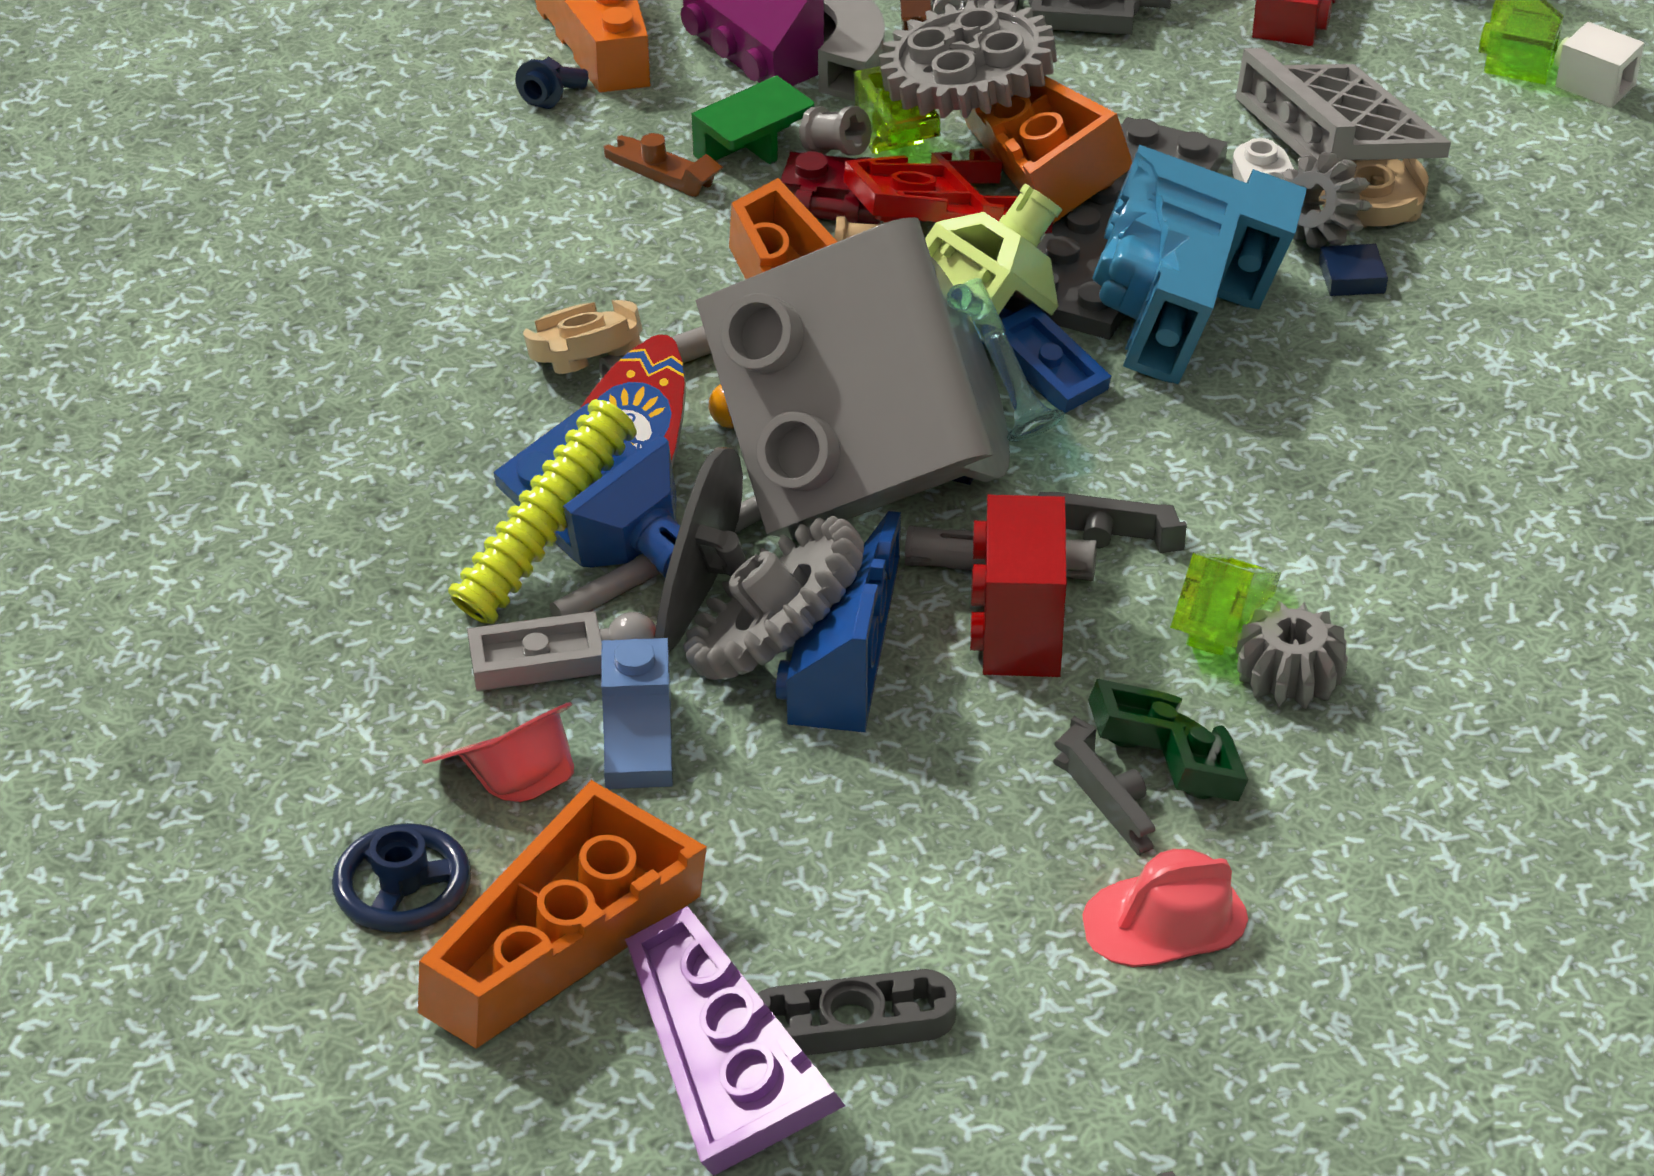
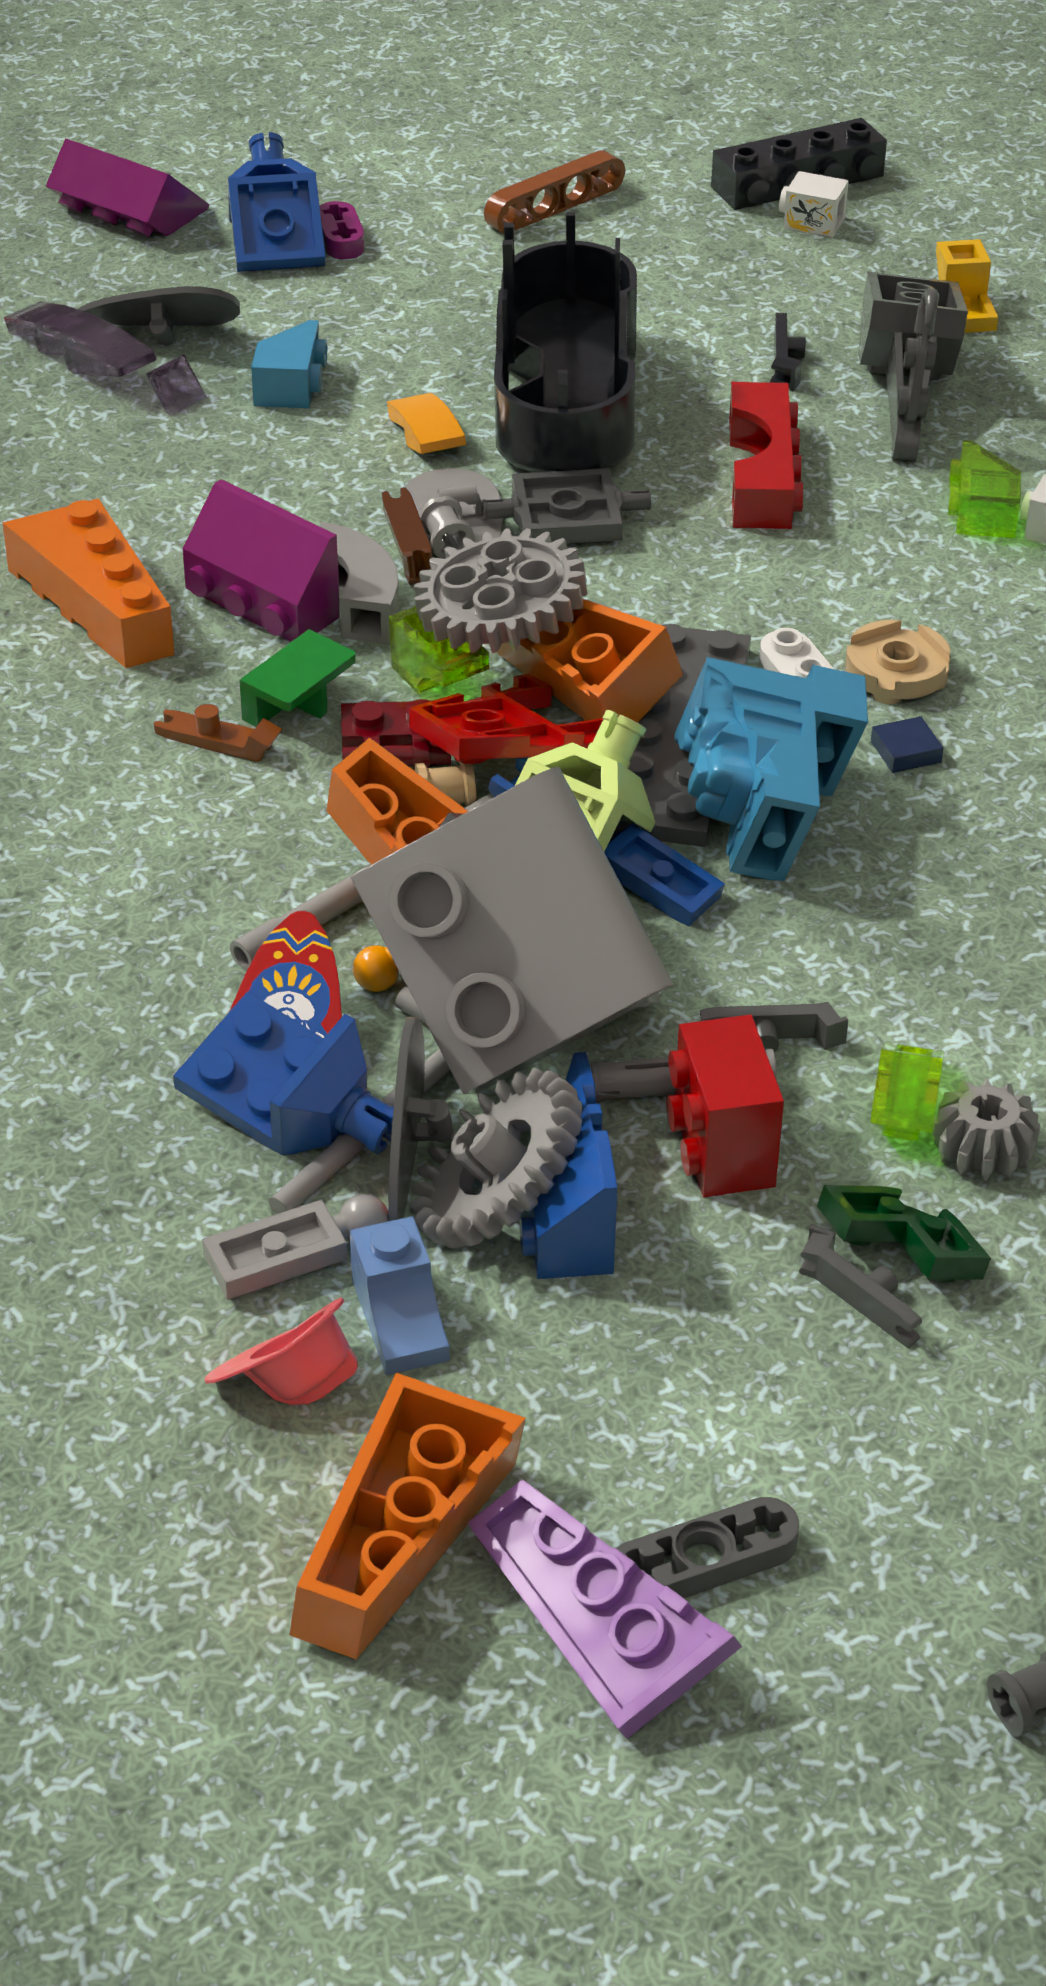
camera: 15 degrees left, 0 degrees up
(402, 866) = (220, 1483): dark blue piece -> none
(541, 511) = (243, 1109): neon yellow piece -> none
(544, 80) = (74, 665): dark blue plate -> none
(581, 333) = (205, 923): tan plate -> none
(840, 130) = (382, 677): light grey bush -> none
(1029, 412) = (663, 931): clear light blue piece -> none
(1168, 912) = (954, 1398): coral piece -> none
(1333, 111) = (841, 595): light grey fence -> none
(1341, 199) = (883, 671): light grey gear -> none

